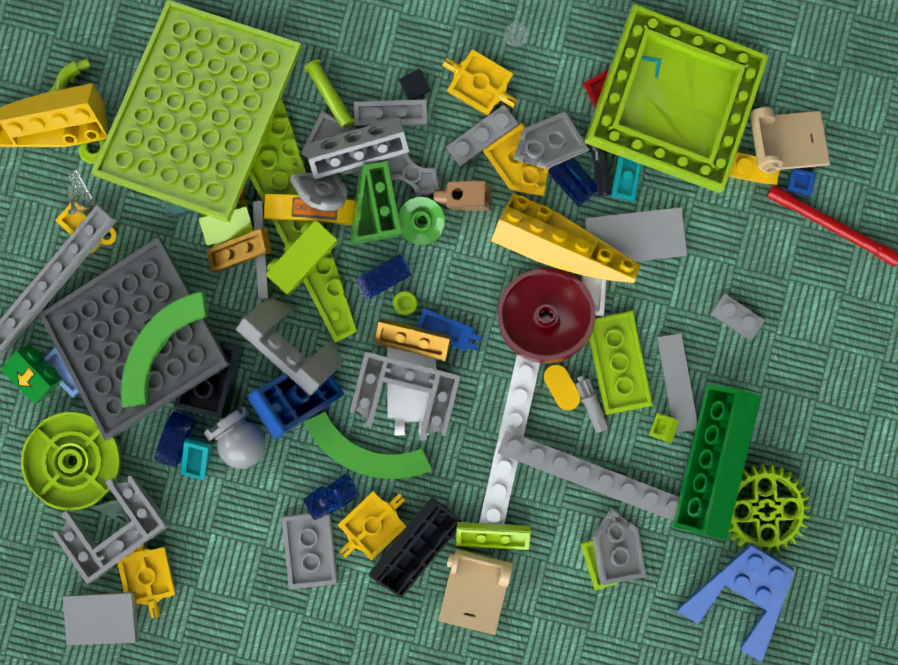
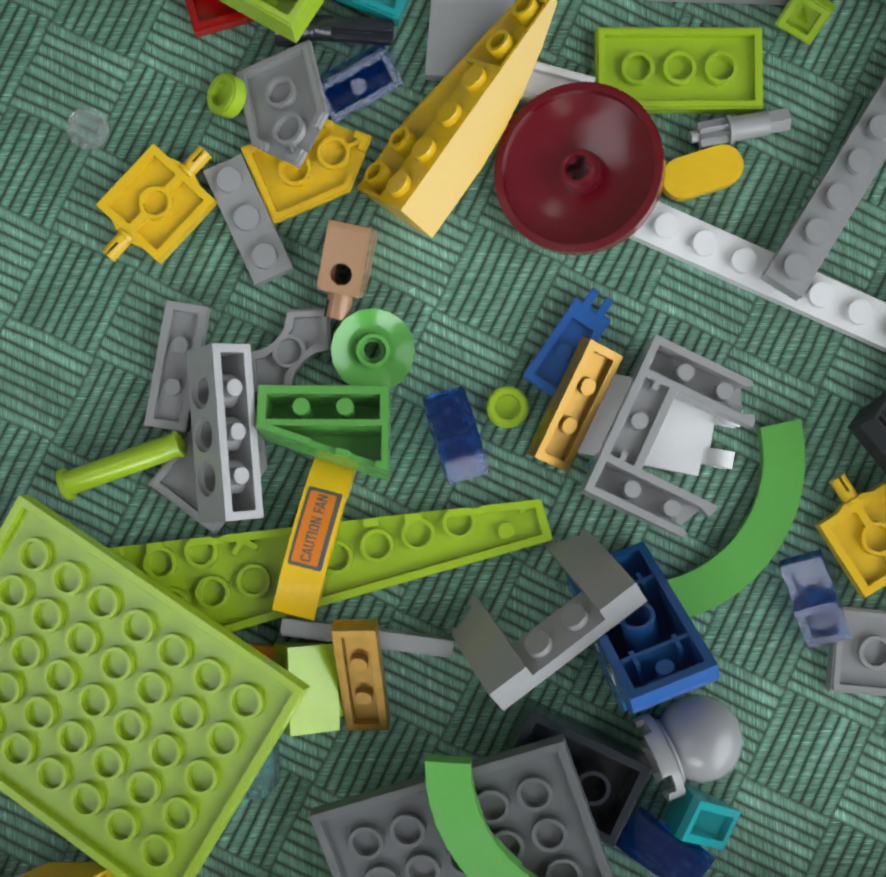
camera: 80 degrees left, 0 degrees up
(301, 257) = (395, 569): lime brick -> none
(322, 193) = (291, 510): light grey tile -> none
(414, 85) = (137, 316): black tile -> none
(549, 109) = (226, 95): none -> lime tile

